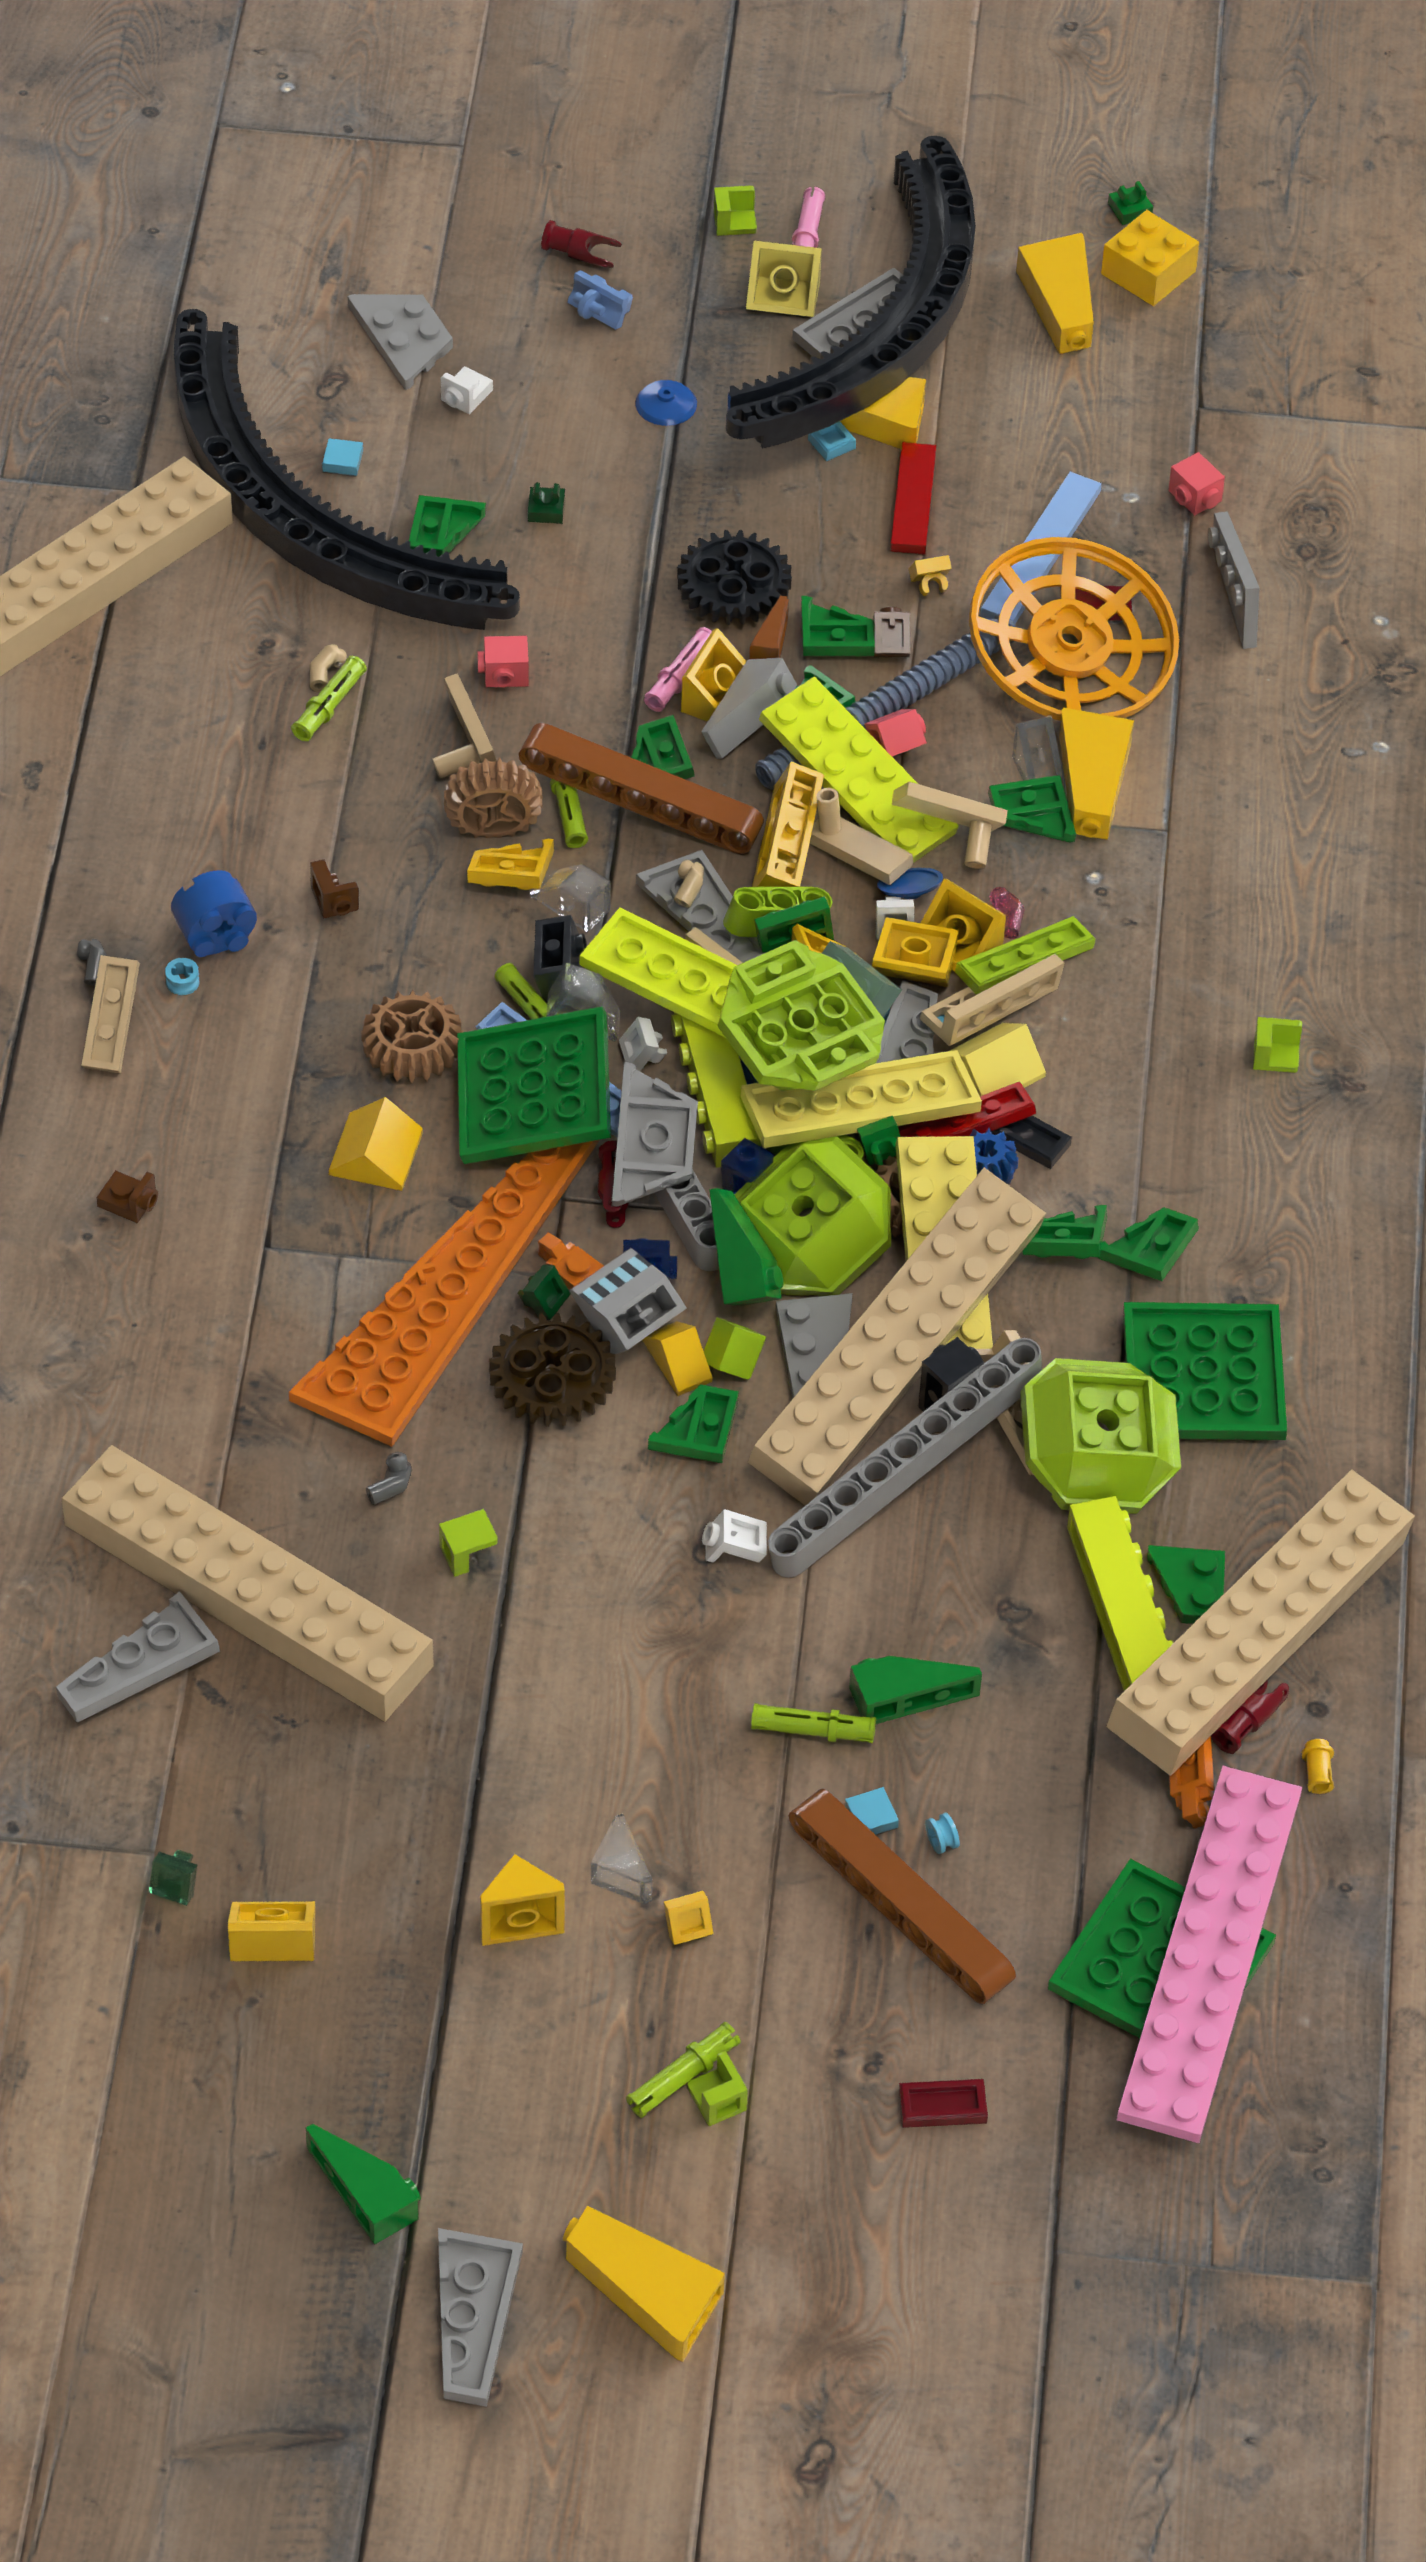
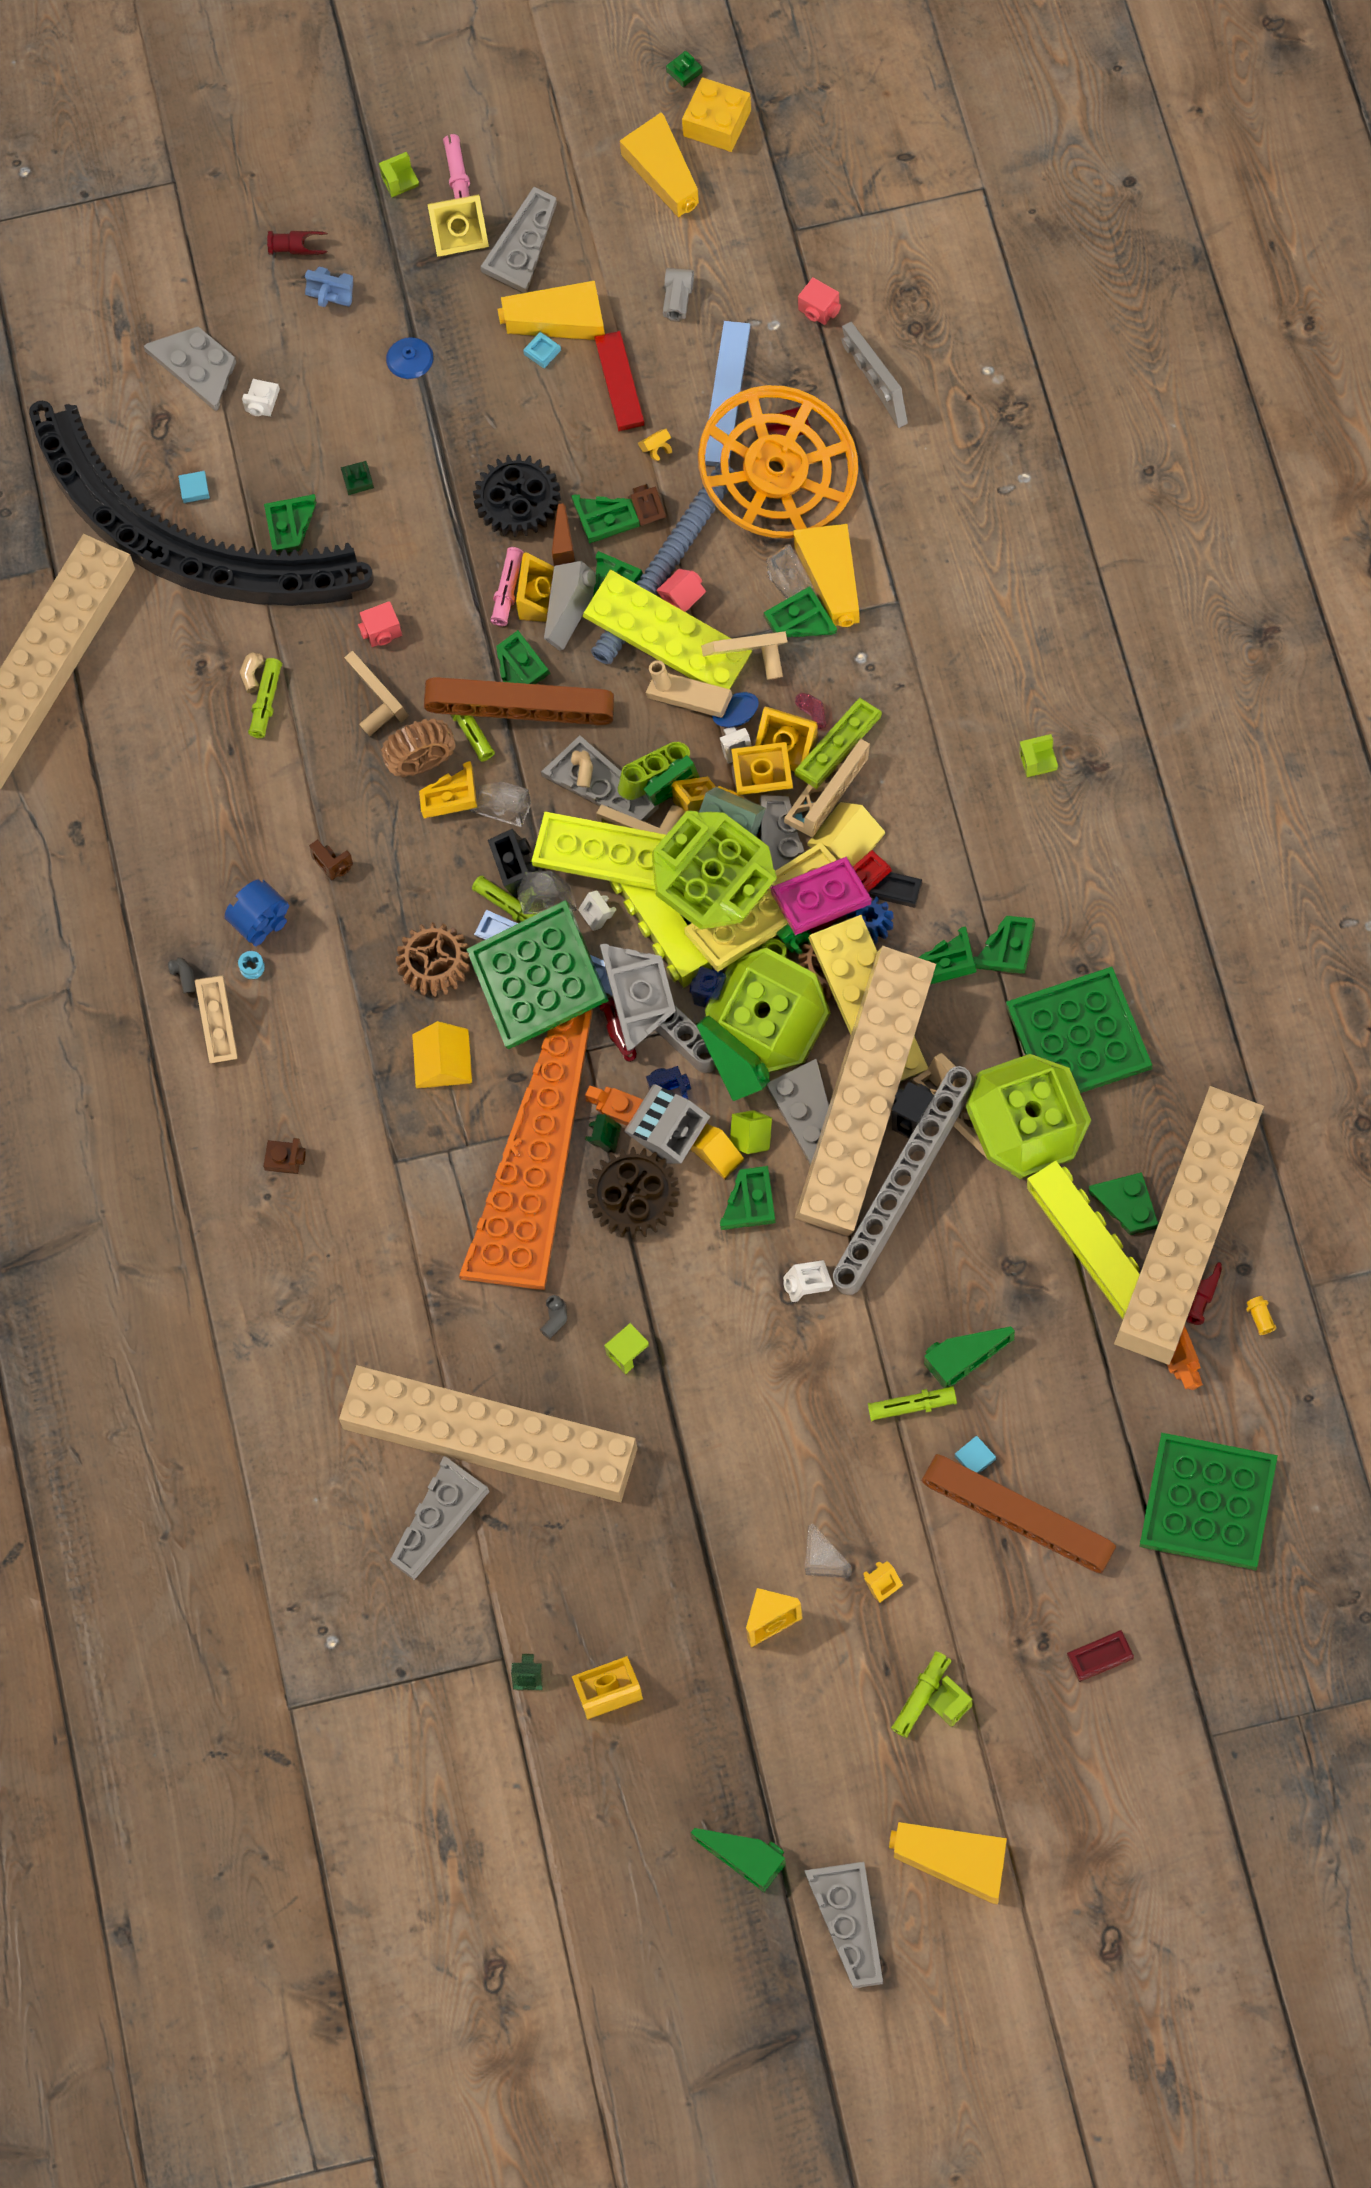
camera: 10 degrees left, 15 degrees up
(788, 828) = (636, 702): yellow brick -> none
(902, 331) = (563, 248): black gear -> none
(930, 1102) = (820, 895): none -> dark pink tile
(942, 1833) = (1029, 1457): medium azure bush -> none
(1026, 421) = (677, 288): none -> light grey piece
(1209, 1955) = (1240, 1486): bright pink plate -> none

